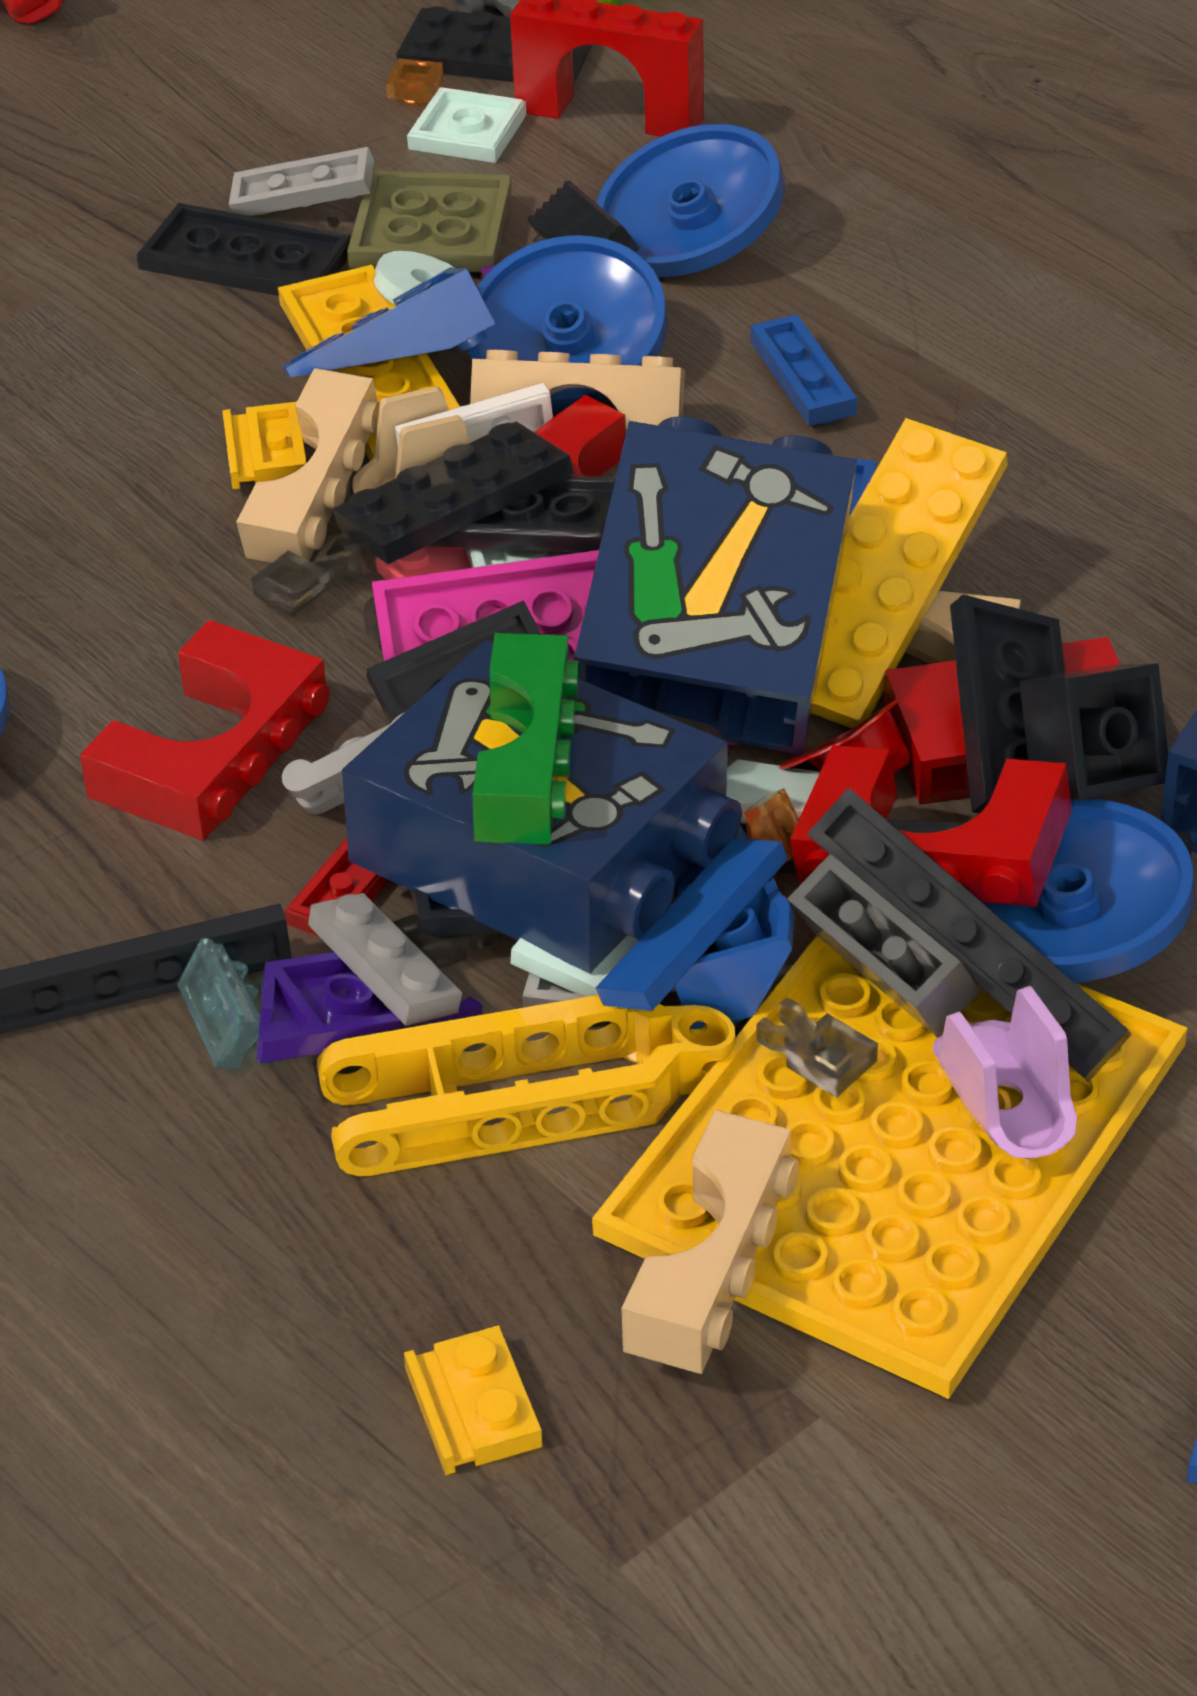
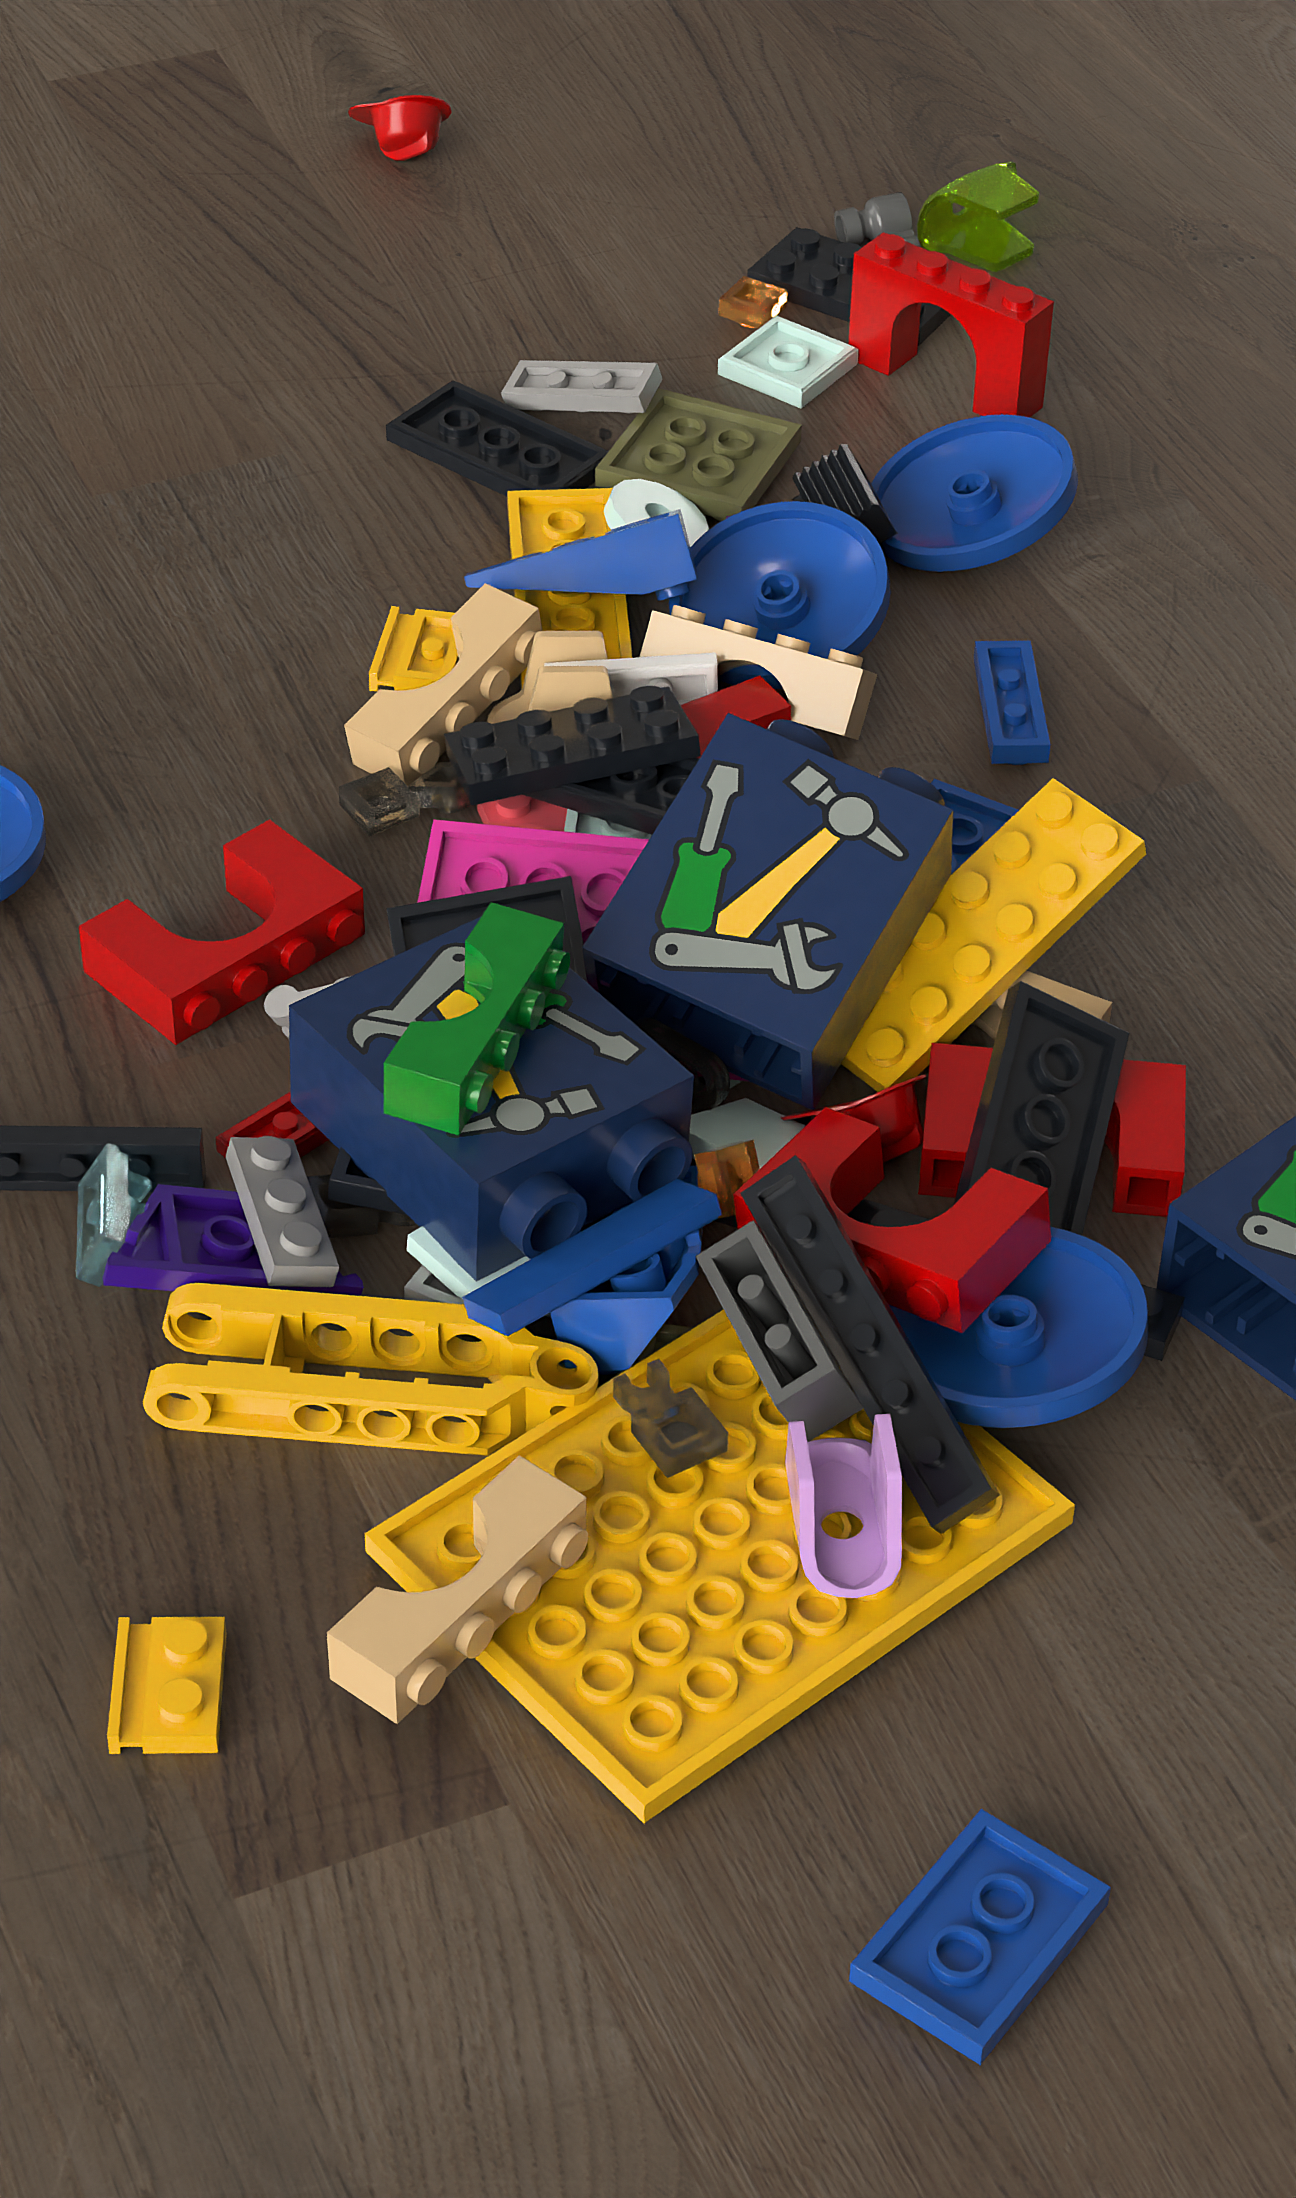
camera: 15 degrees right, 0 degrees up
(1101, 725) = (1109, 1160): black brick -> none

